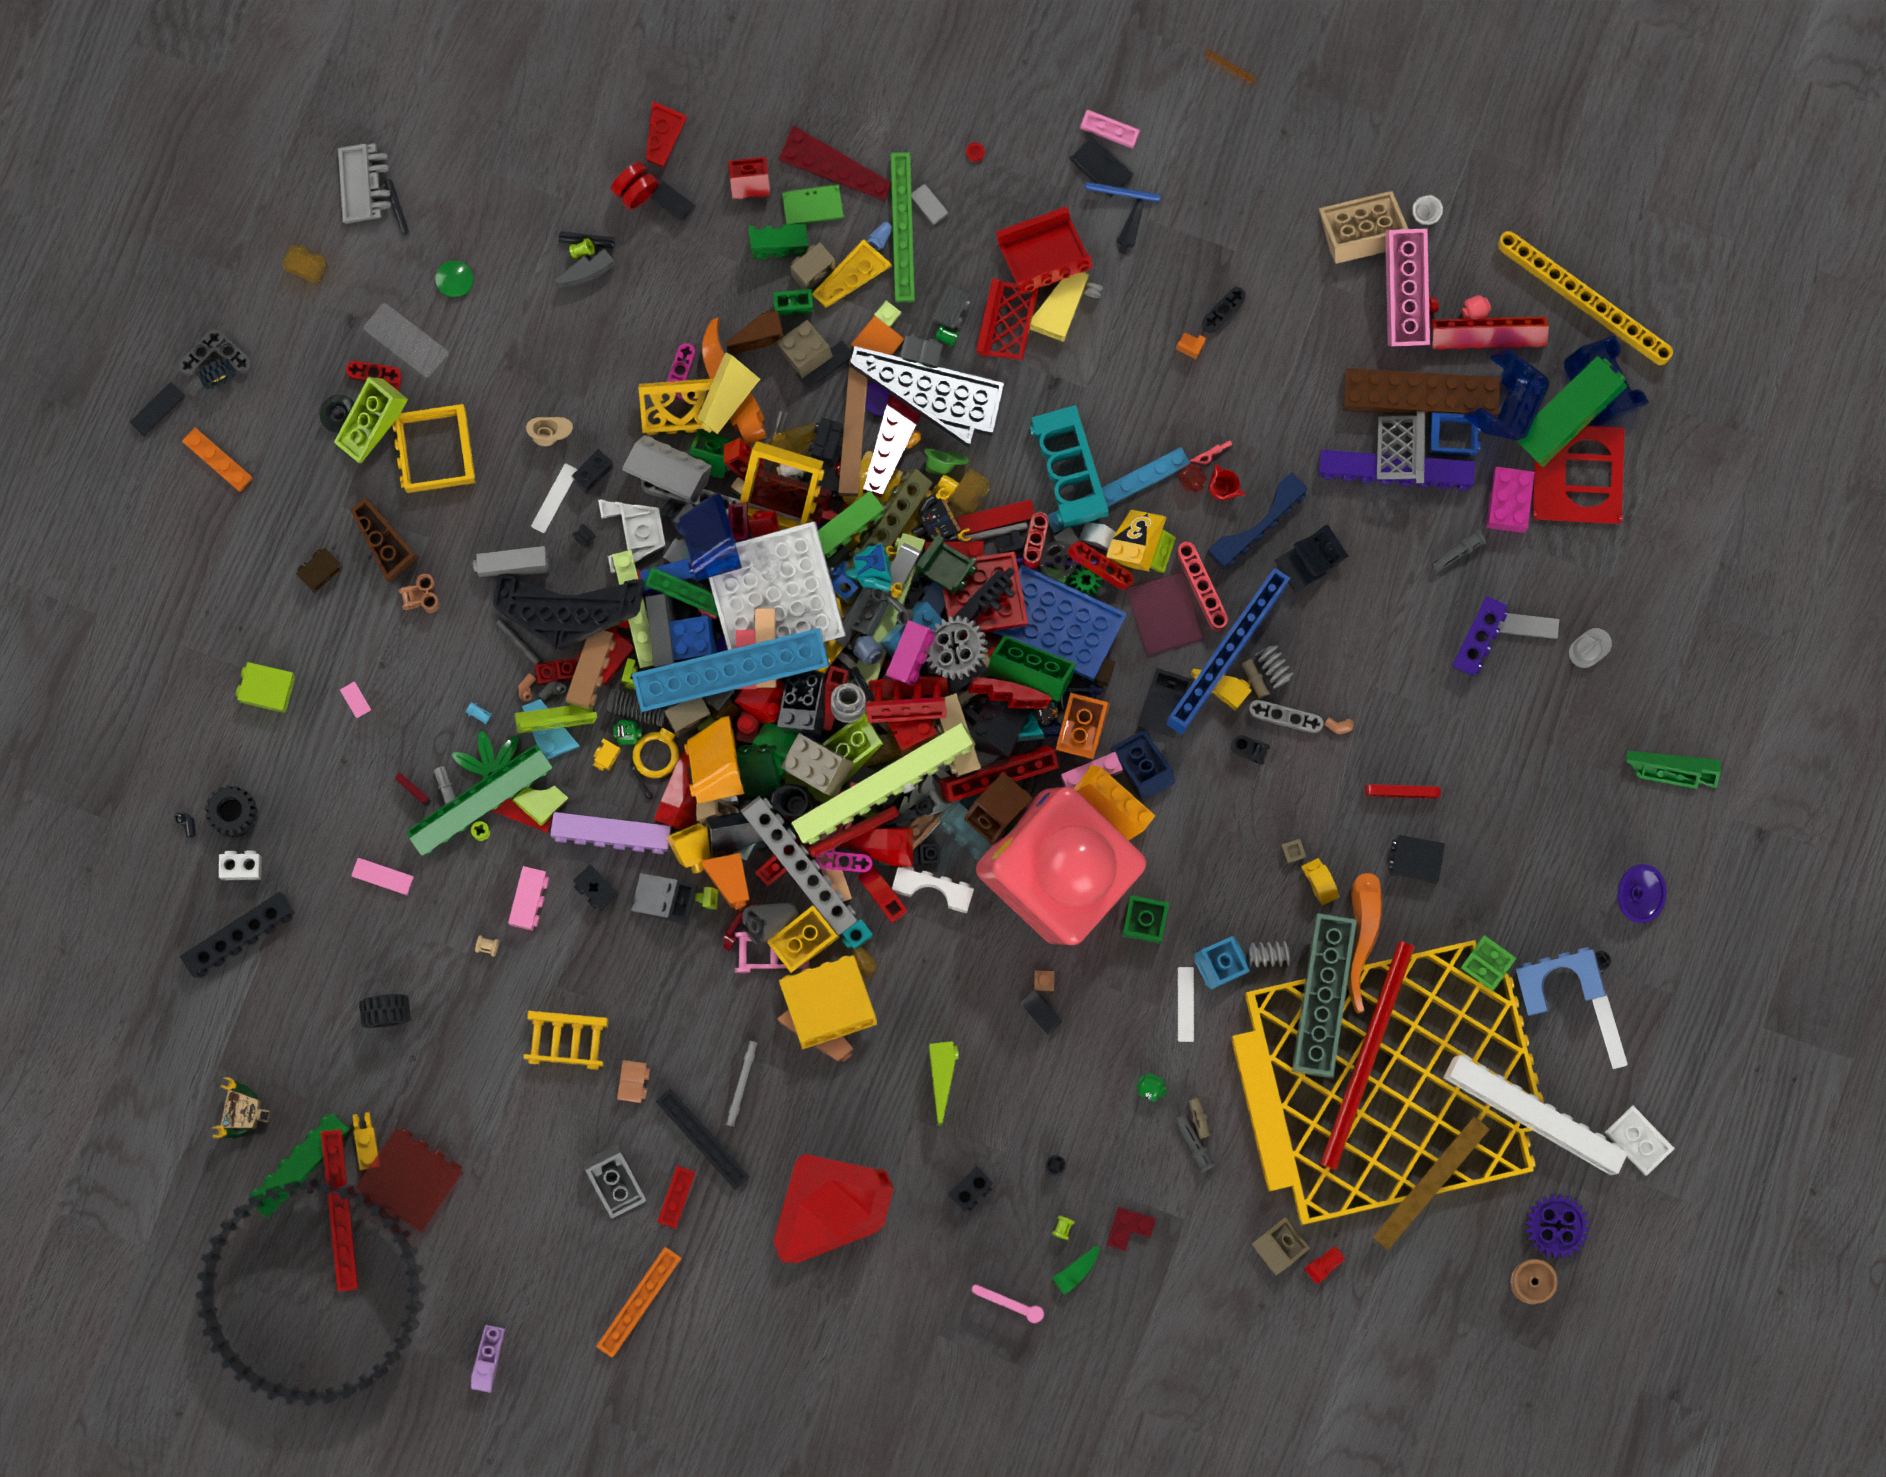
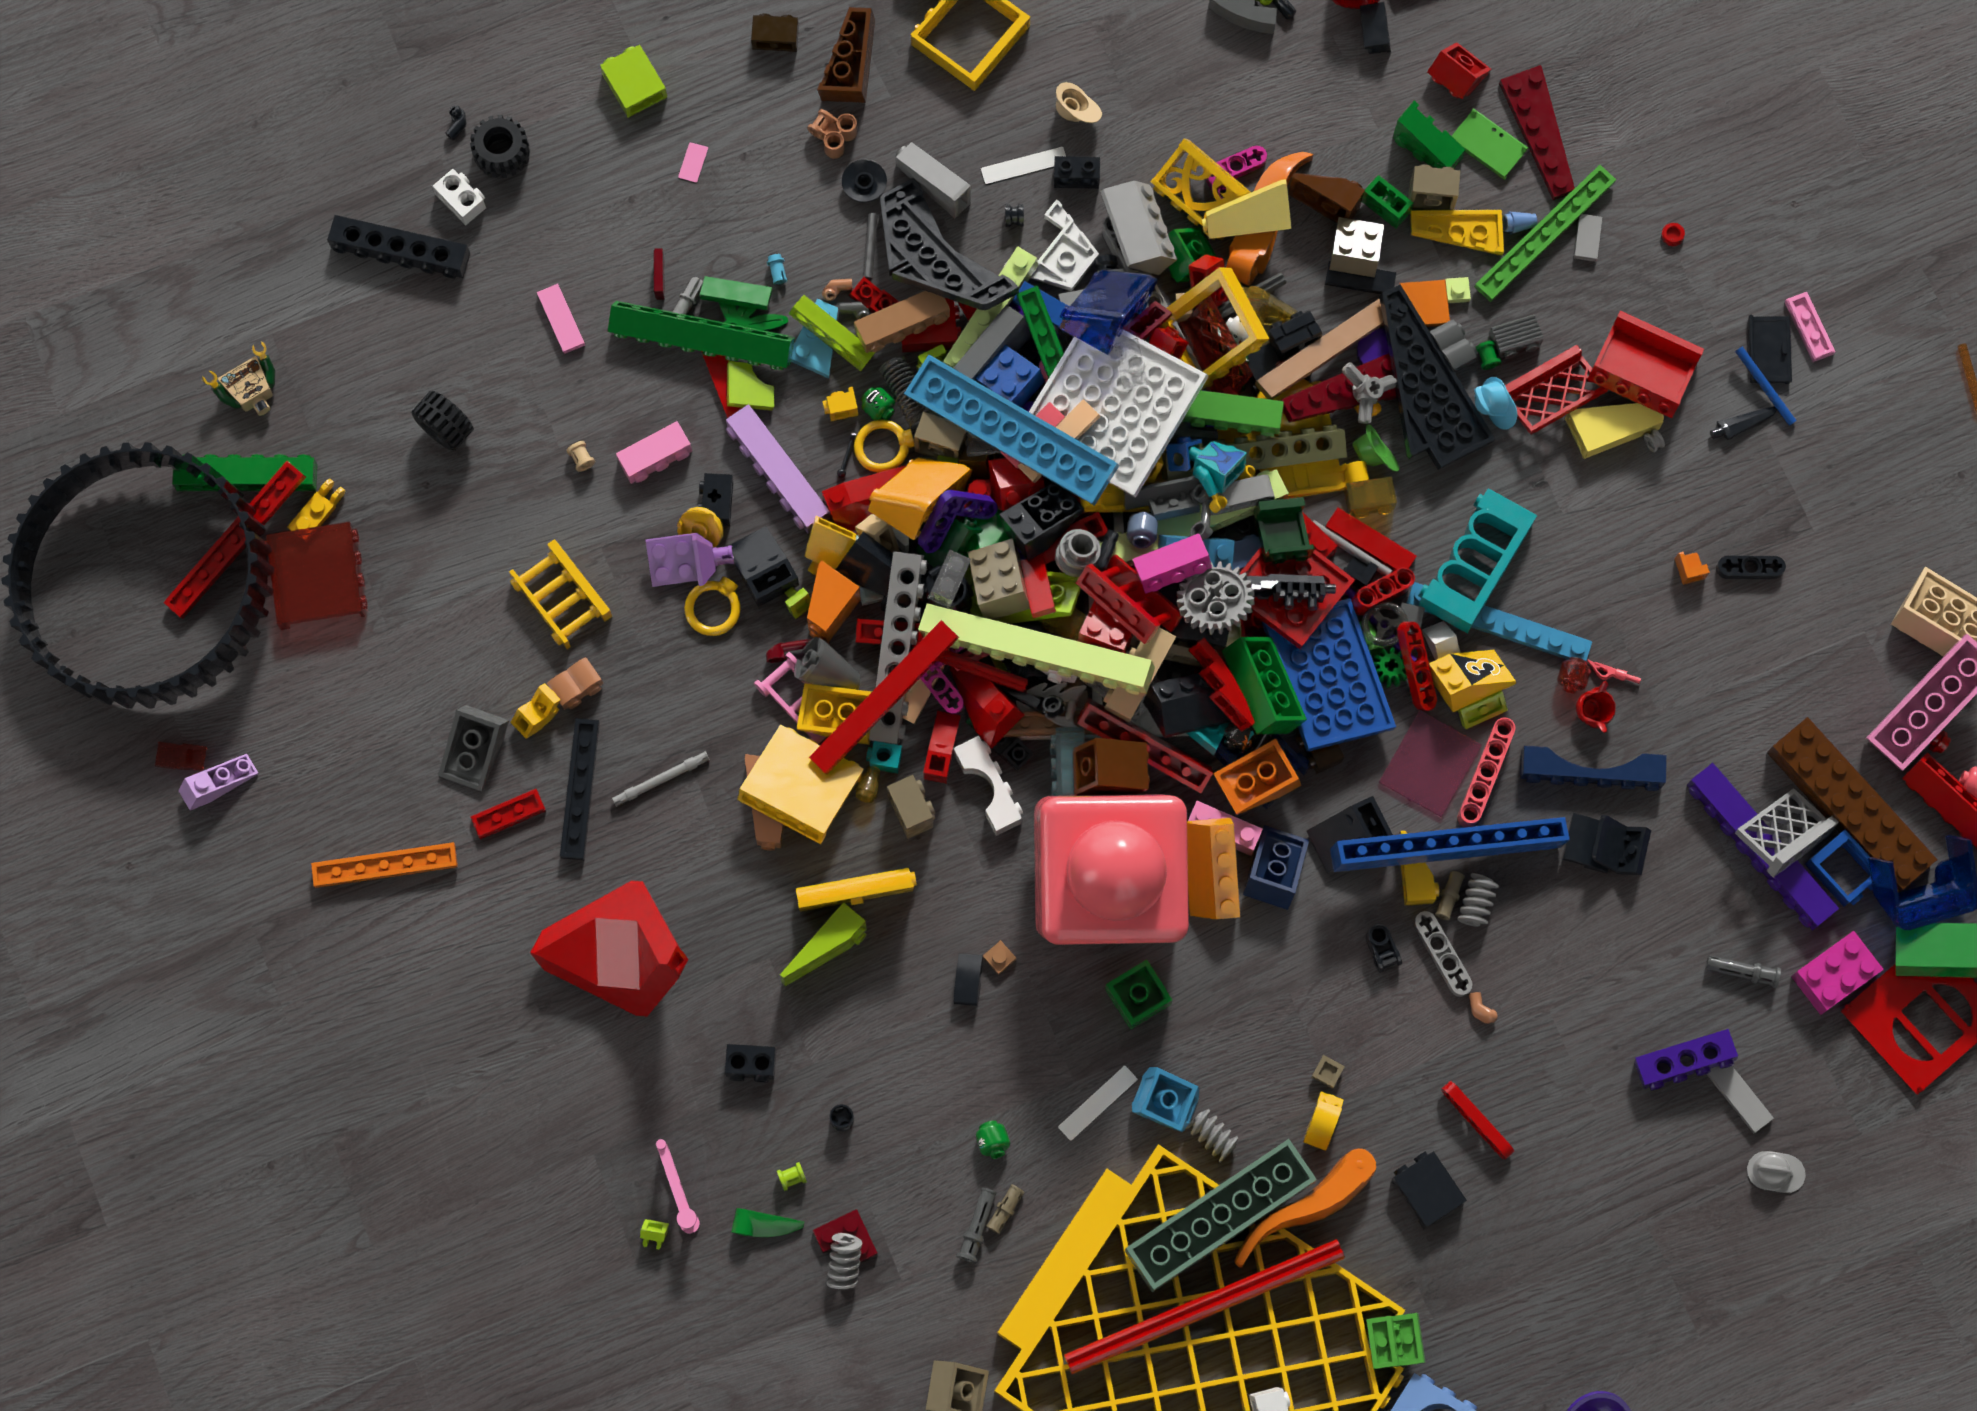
camera: 50 degrees right, 5 degrees down
(449, 1367) = (180, 756): none -> clear red slope
(468, 597) = (864, 171): none -> black dish
(471, 753) = (736, 293): none -> tile
(478, 825) = (671, 366): lime bush -> none
(606, 915) = (703, 522): none -> yellow tile
(617, 942) = (684, 559): none -> medium lavender plate
(629, 1121) = (536, 713): none -> yellow brick
(658, 933) = (725, 587): none -> yellow piece
(744, 755) = (948, 506): none -> dark purple beam
(789, 794) = (949, 578): none -> clear brick
(825, 902) = (884, 697): none -> red tile
(844, 746) = (1038, 586): none -> red tile
(904, 431) = (1367, 390): none -> light grey bush
(904, 948) = (910, 806): none -> dark tan brick
(925, 1029) = (855, 889): none -> yellow door
(937, 519) = (1319, 490): torso -> none
(981, 361) = (1496, 402): none -> medium azure piece
(1021, 1340) = (654, 1231): none -> lime tile
(1145, 1243) = (846, 1261): none -> light grey piece
(1675, 769) = (1742, 1353): green wedge -> none

